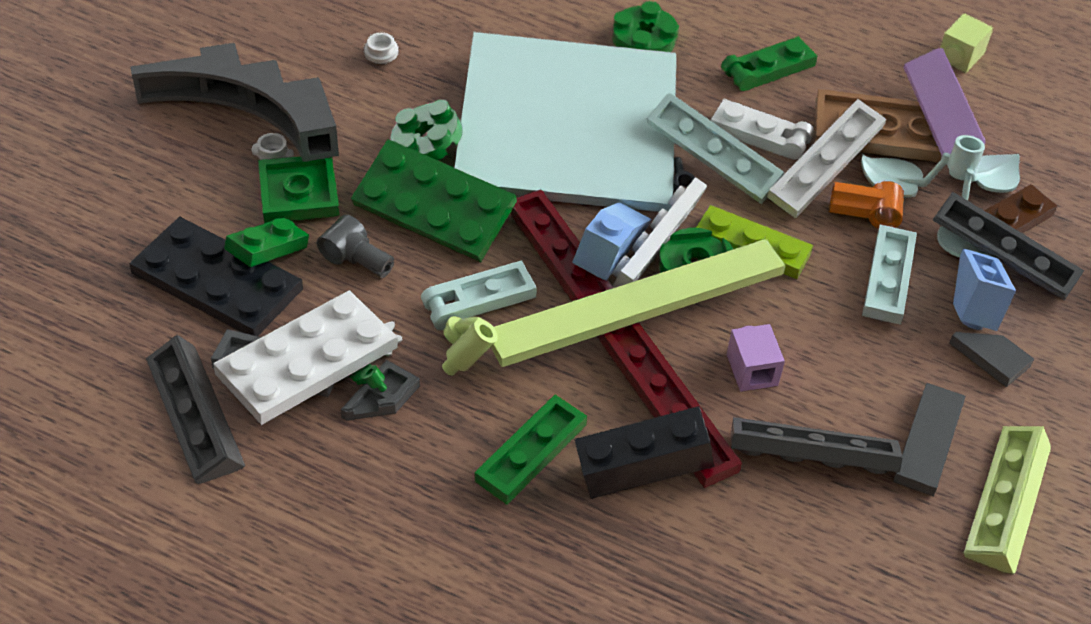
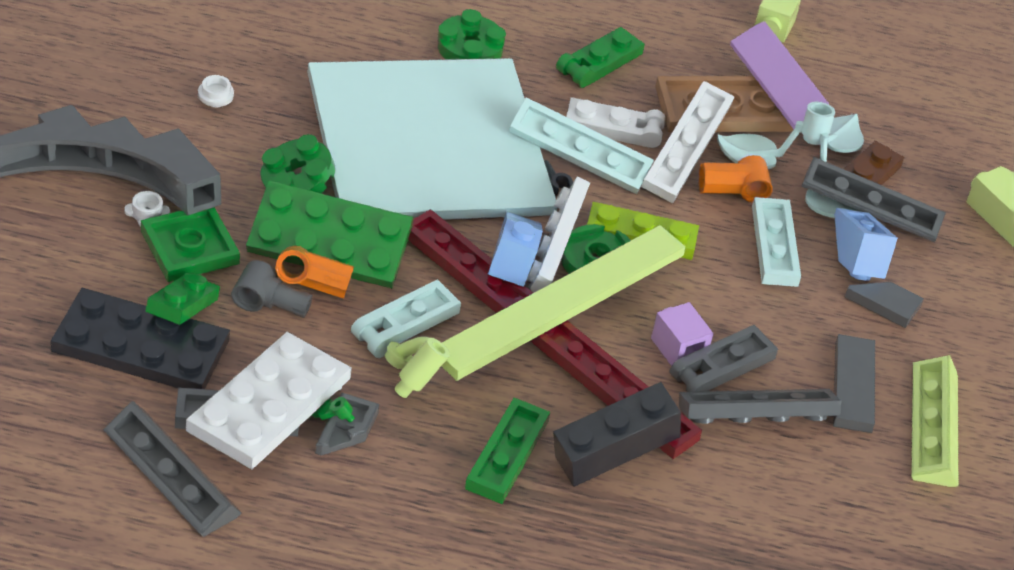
camera: 20 degrees left, 5 degrees down
(405, 234) = (319, 272): none -> orange piece
(793, 390) = (724, 360): none -> dark grey plate

